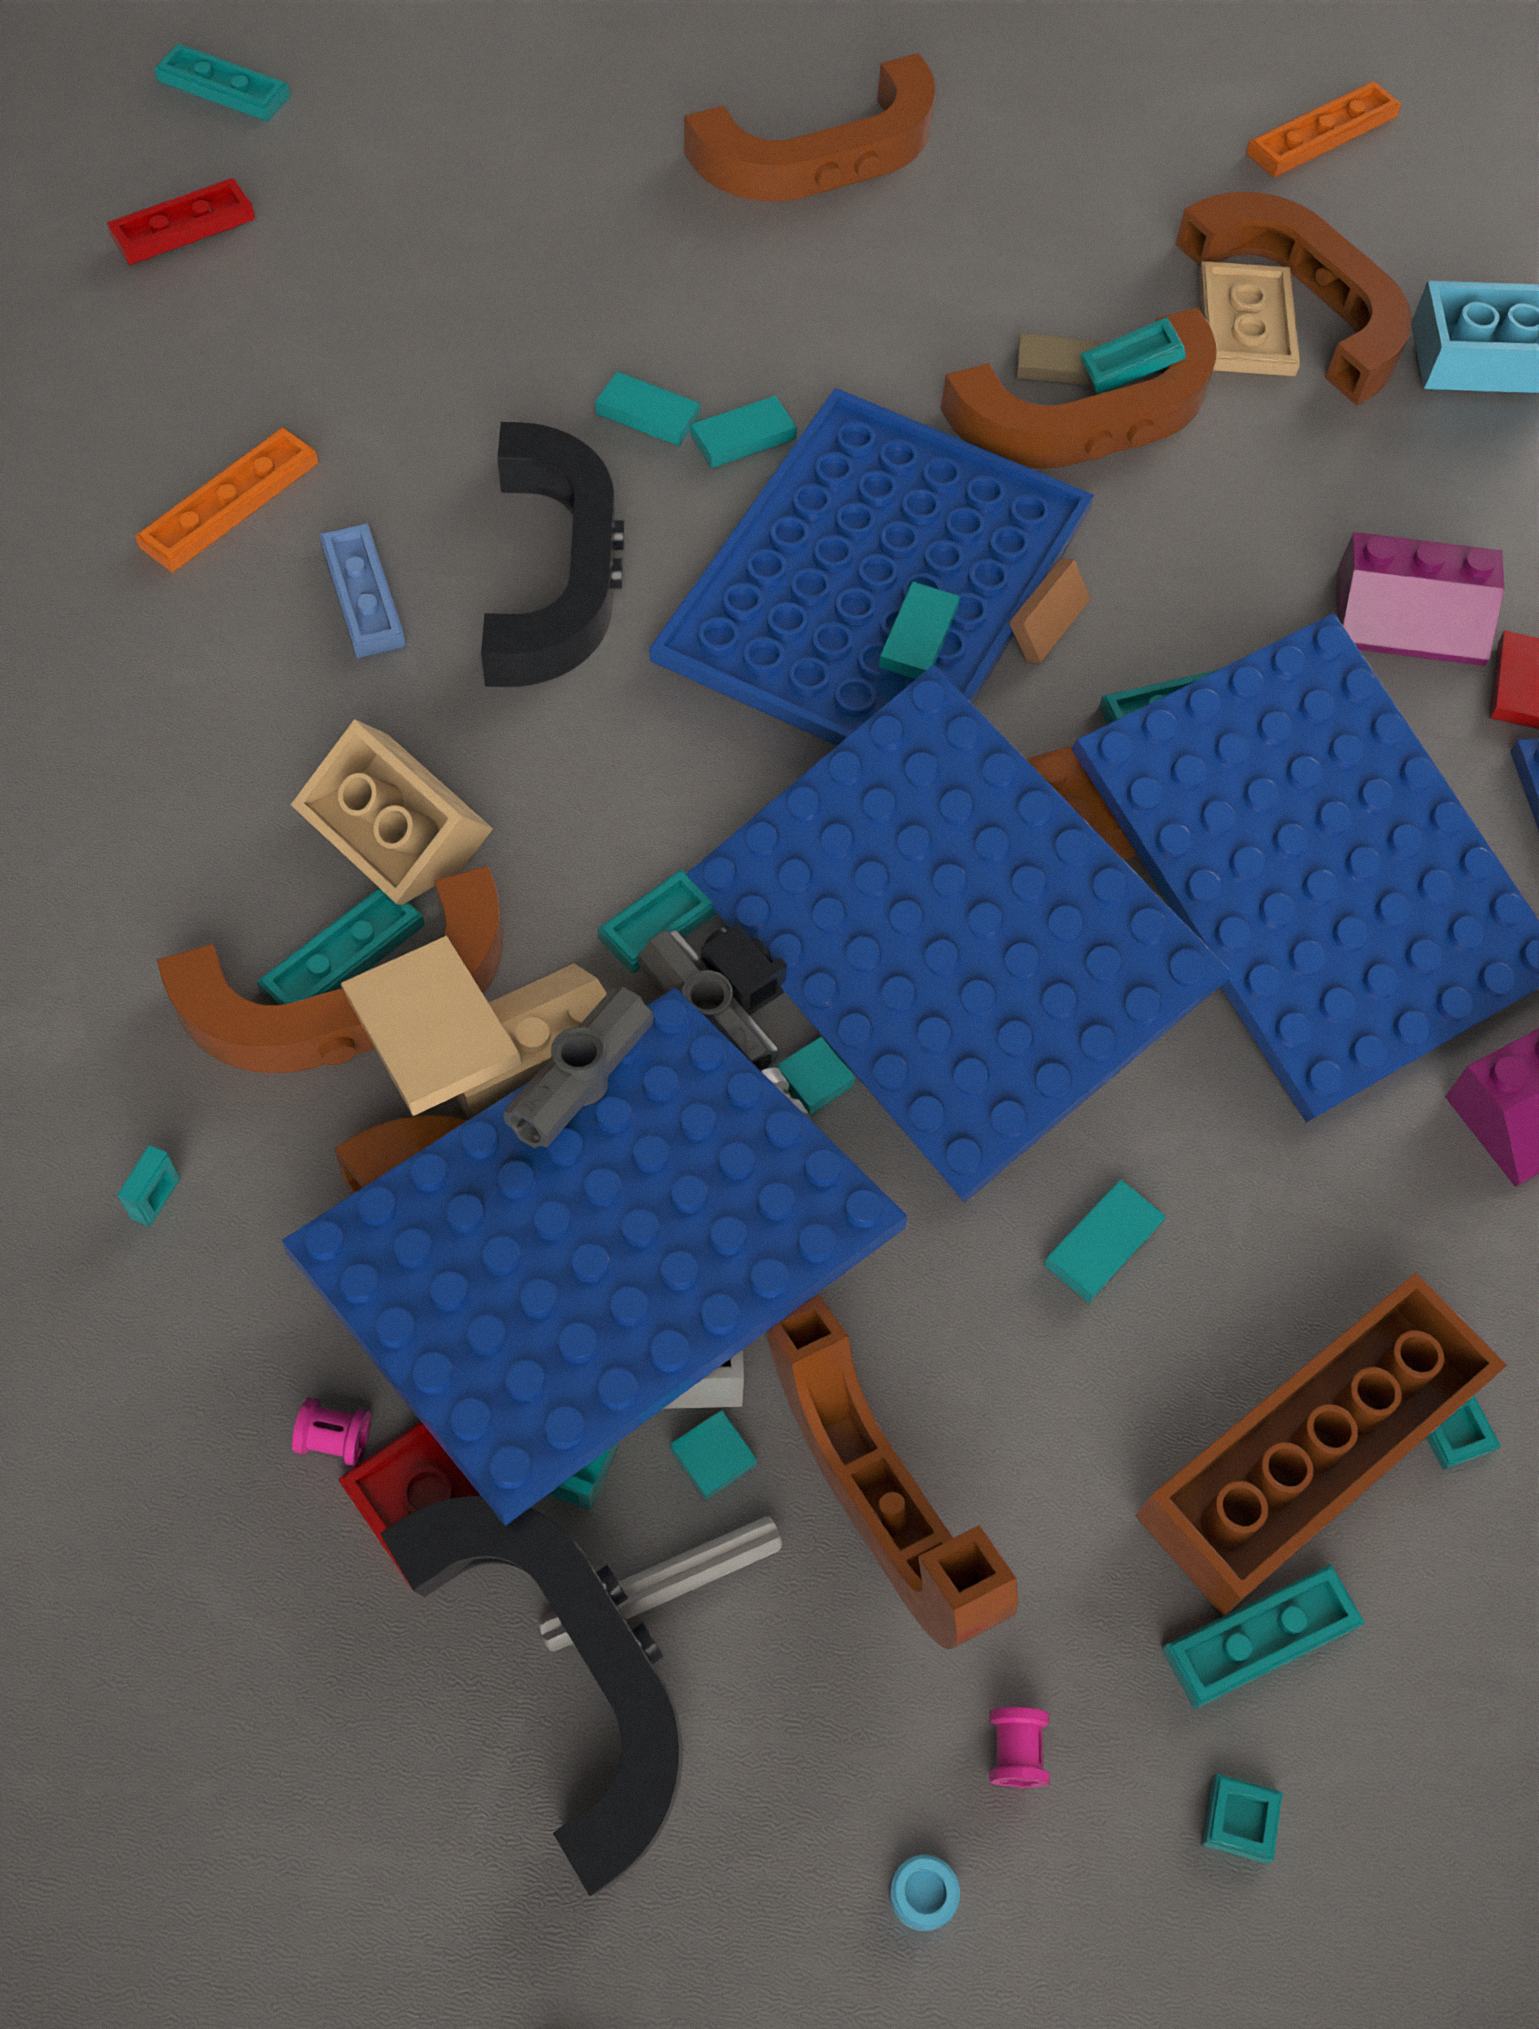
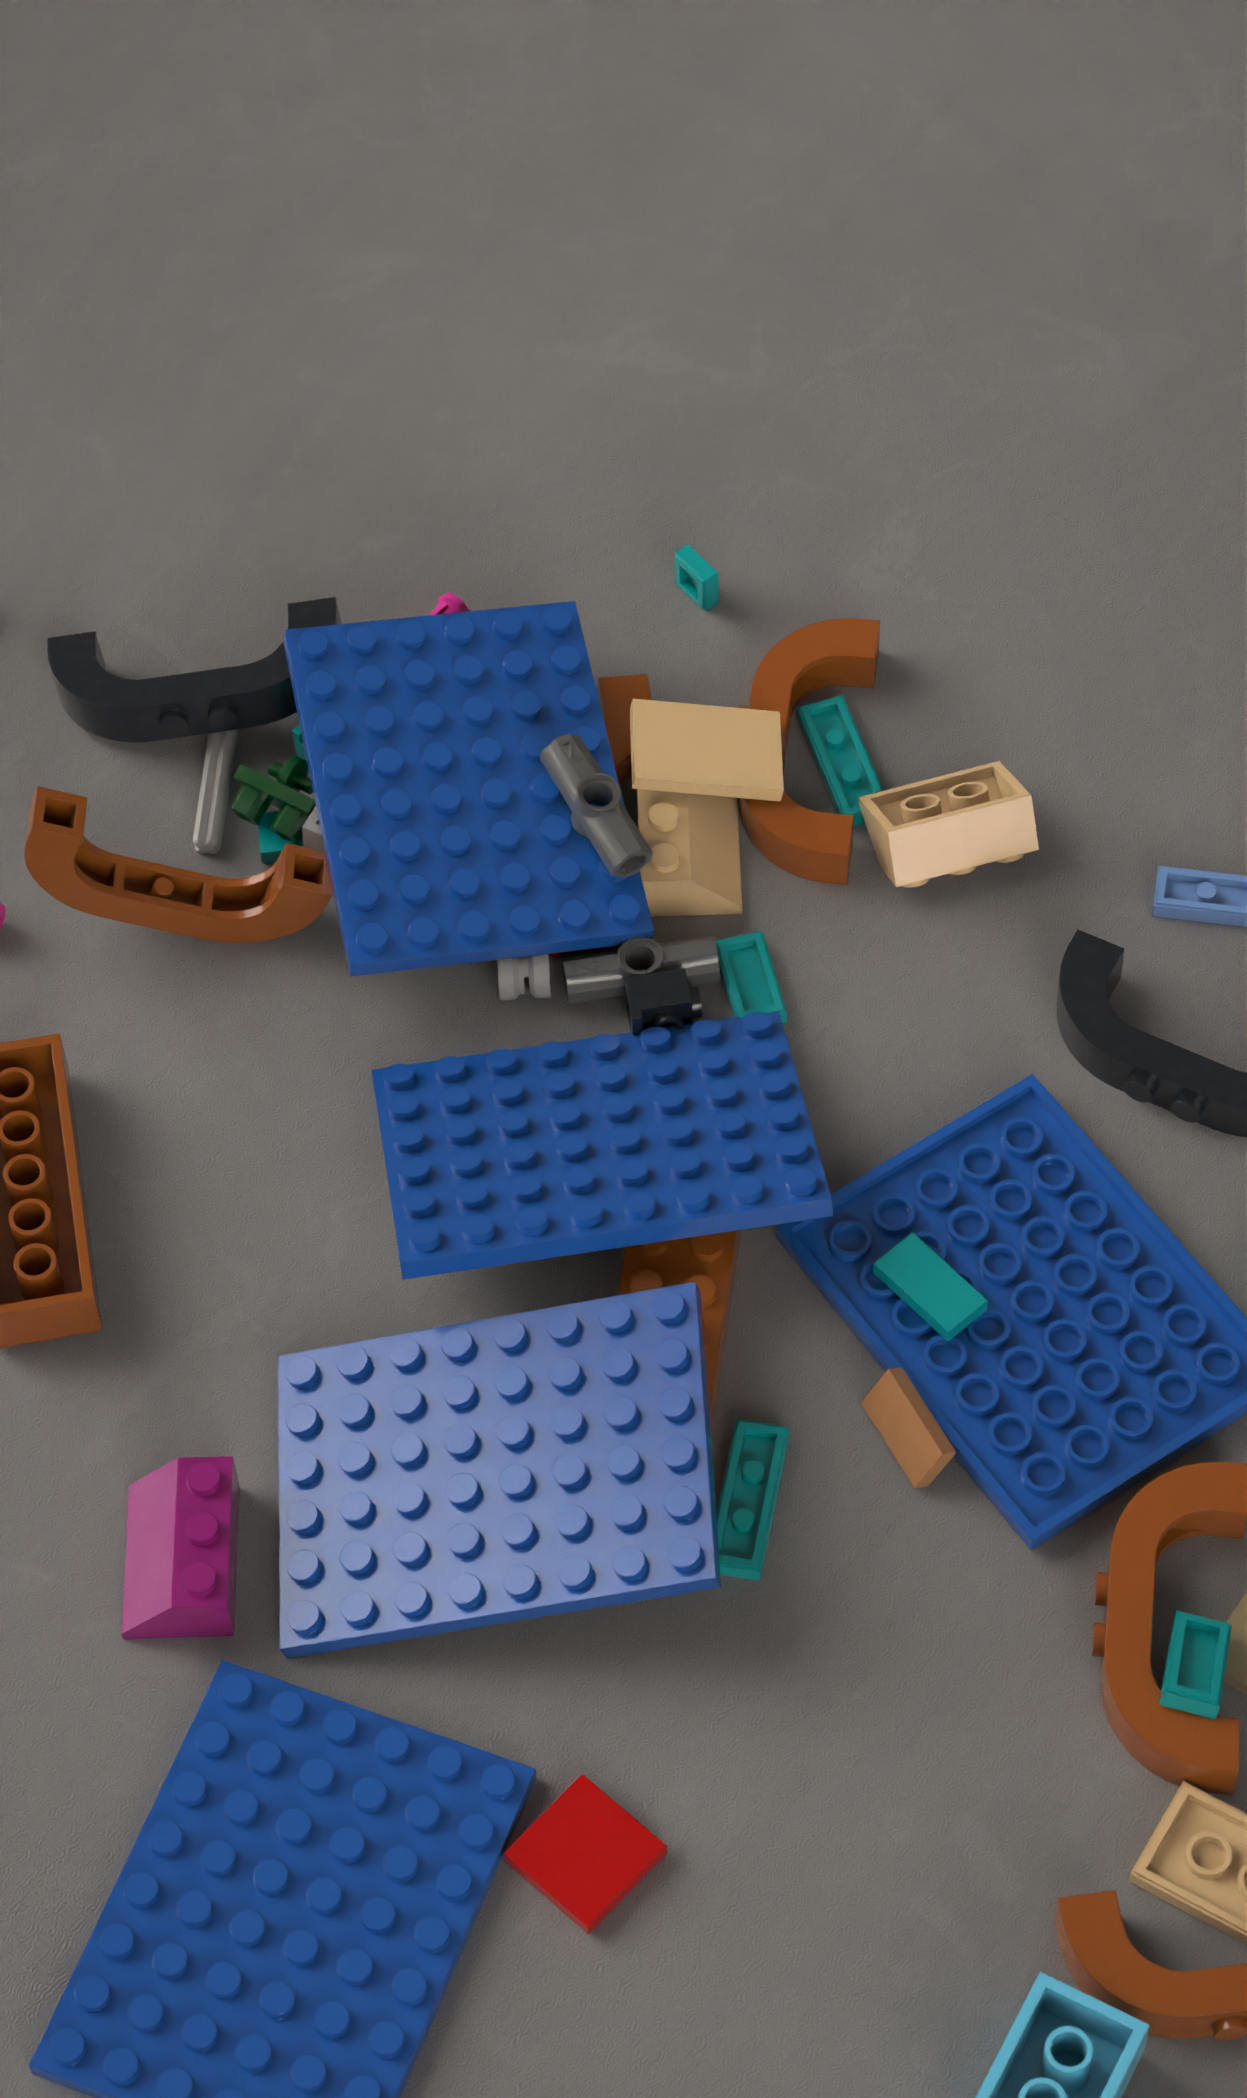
camera: 125 degrees right, 5 degrees down
(681, 1453) = (260, 792): none -> dark green hips
(816, 1075) = (539, 1022): teal tile -> none
(1104, 1241) = (278, 1155): teal tile -> none
(1420, 597) = (747, 1780): slope -> none

